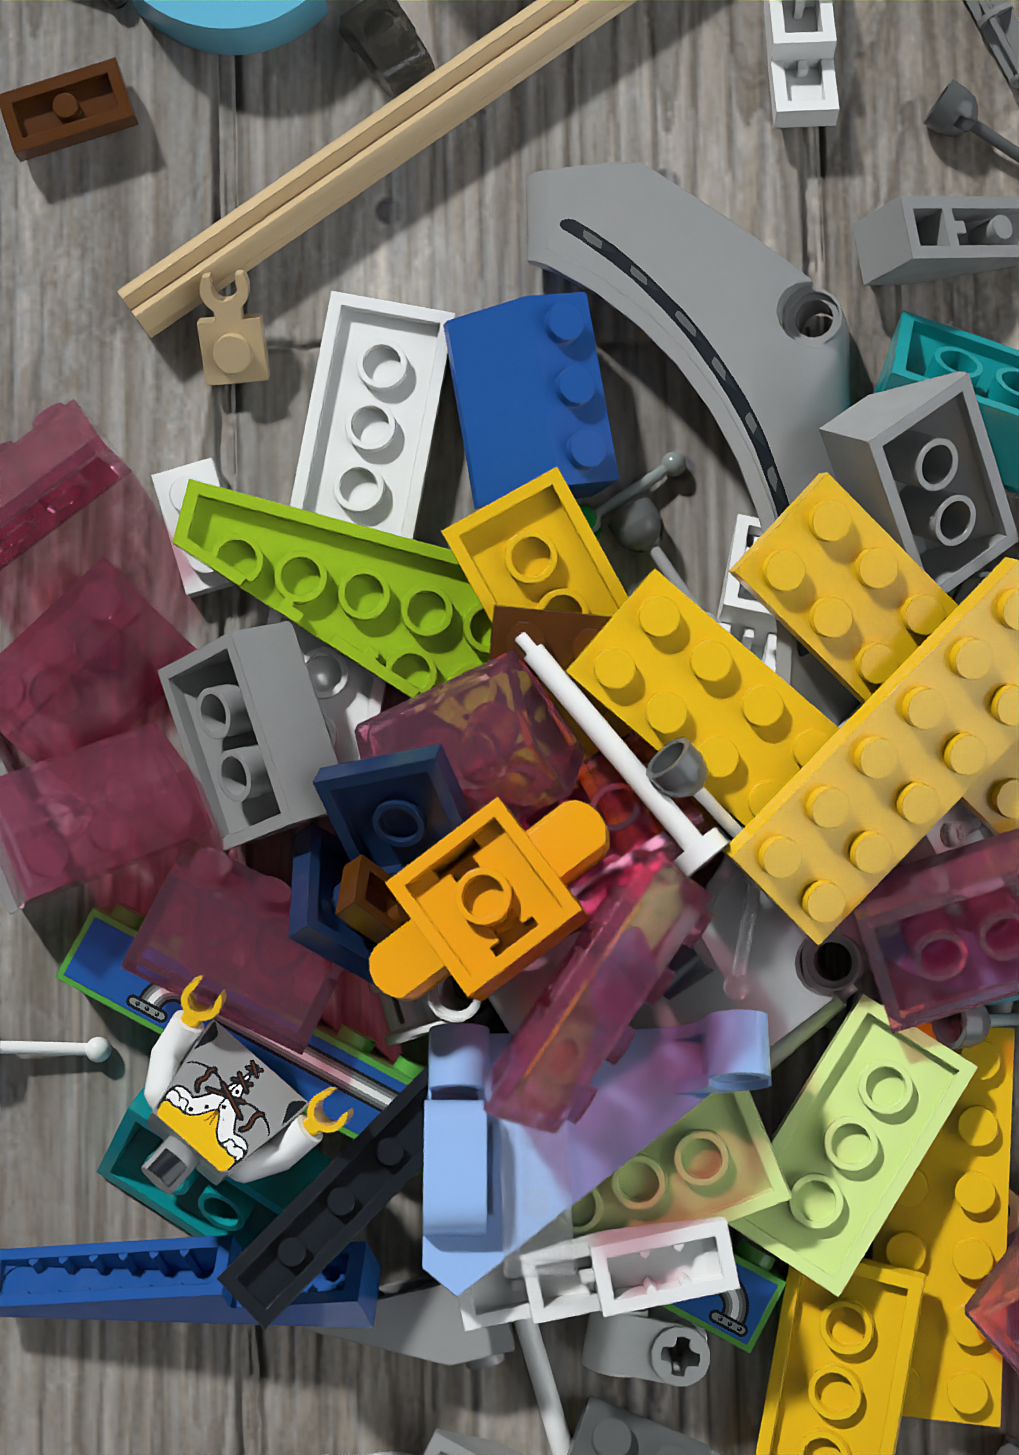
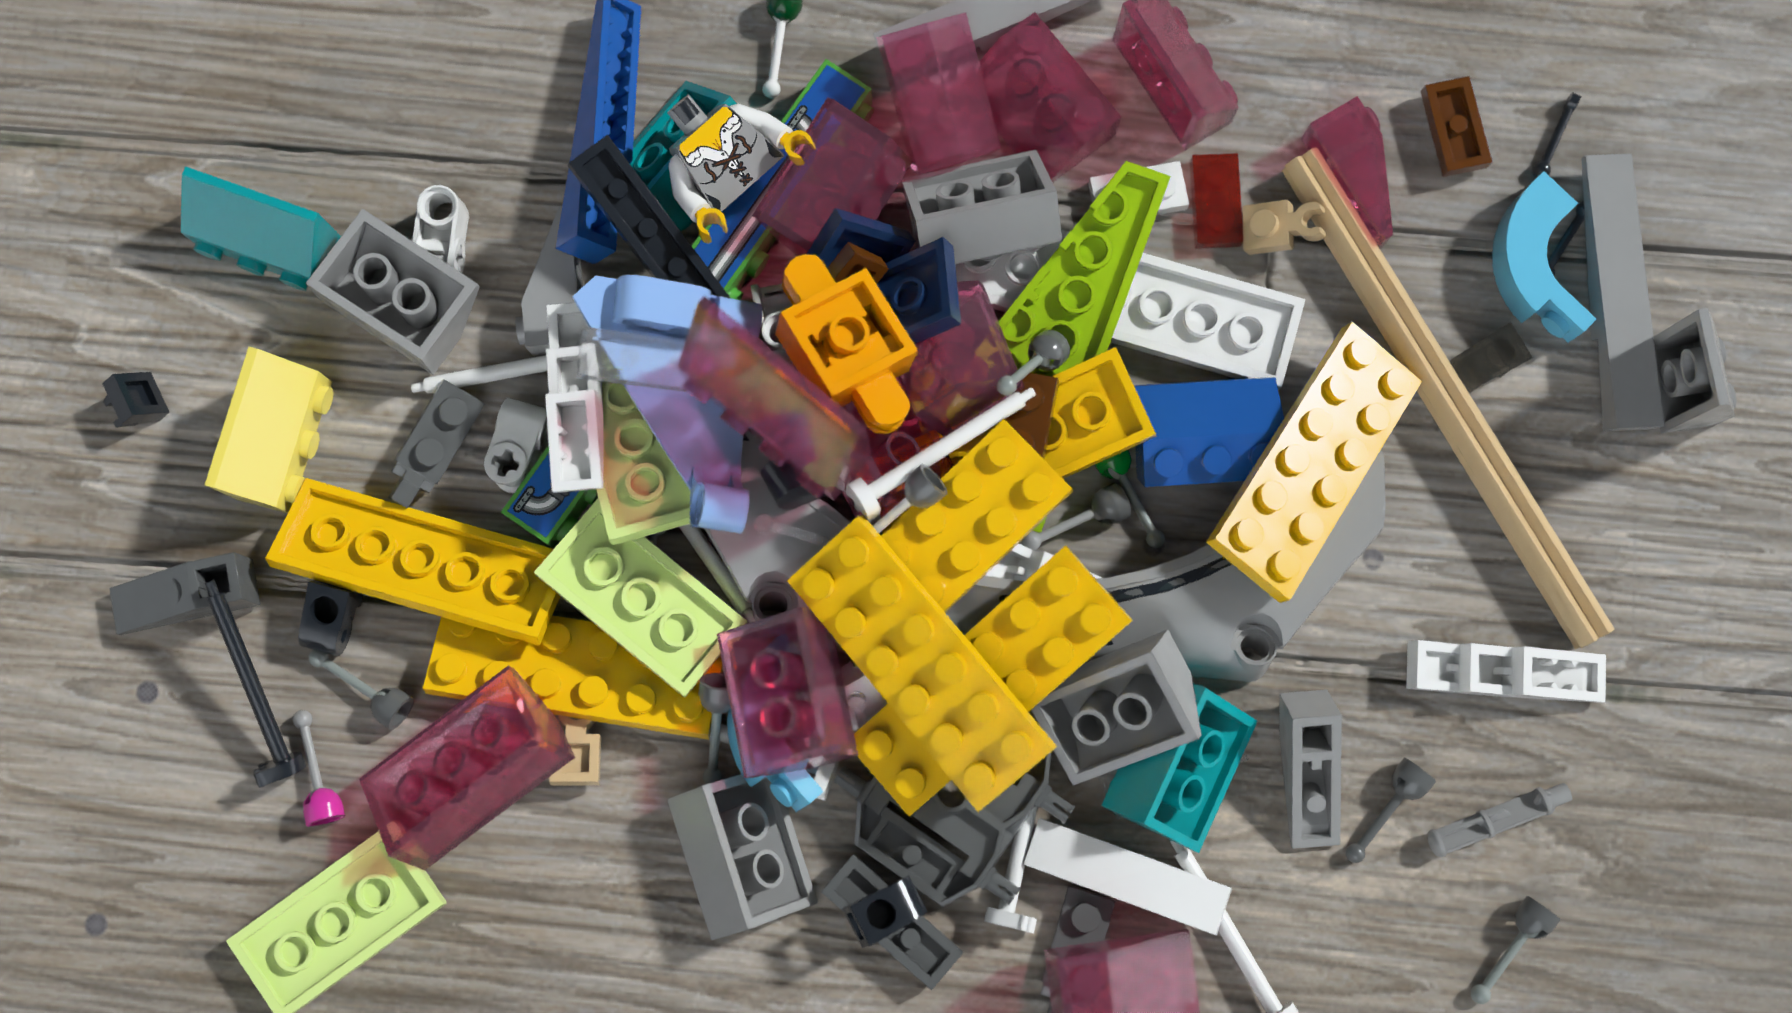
camera: 95 degrees right, 5 degrees down
(130, 234) = (1355, 153): none -> clear pink slope
(200, 422) = (1216, 201): none -> clear red plate
(456, 626) = (1041, 350): none -> dark grey hinge
(567, 255) = (1314, 463): none -> plate

